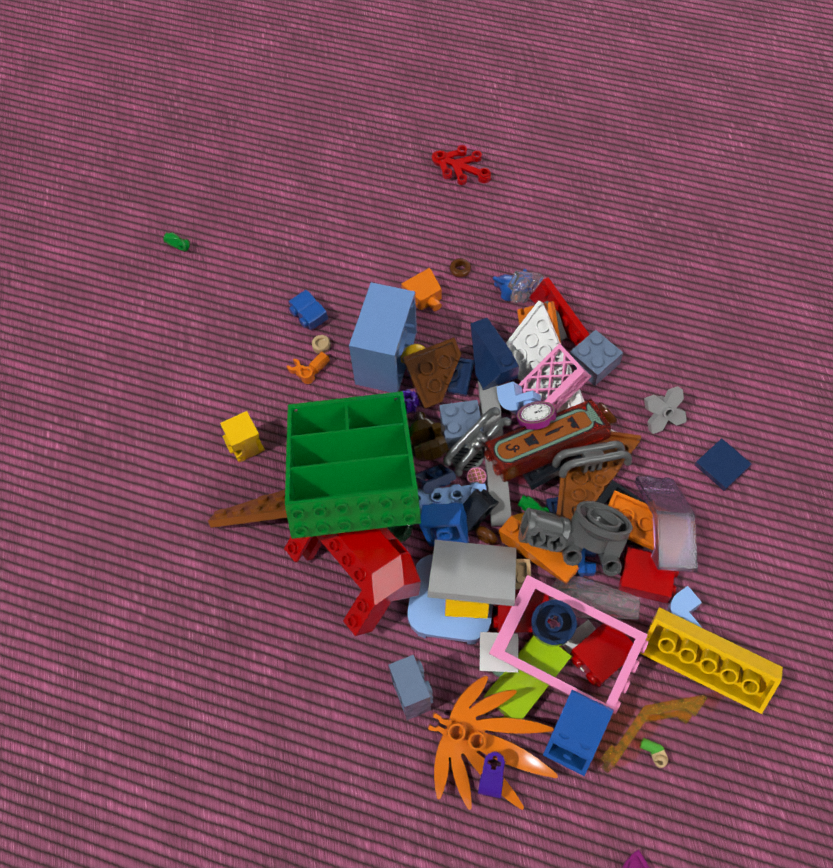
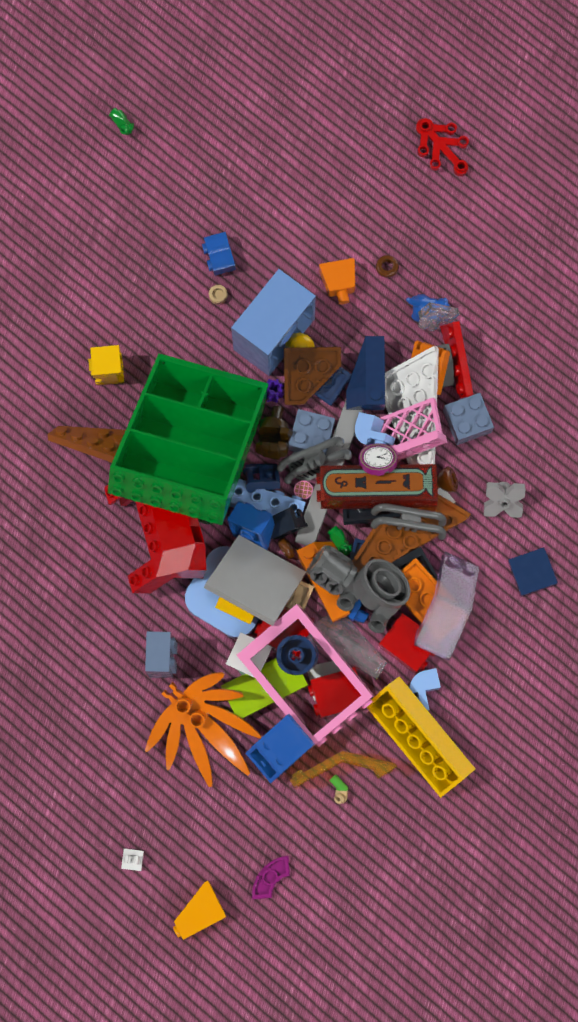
camera: 20 degrees right, 15 degrees up
(307, 373) = (192, 321): orange bar -> none
(492, 779) = (195, 753): dark purple piece -> none

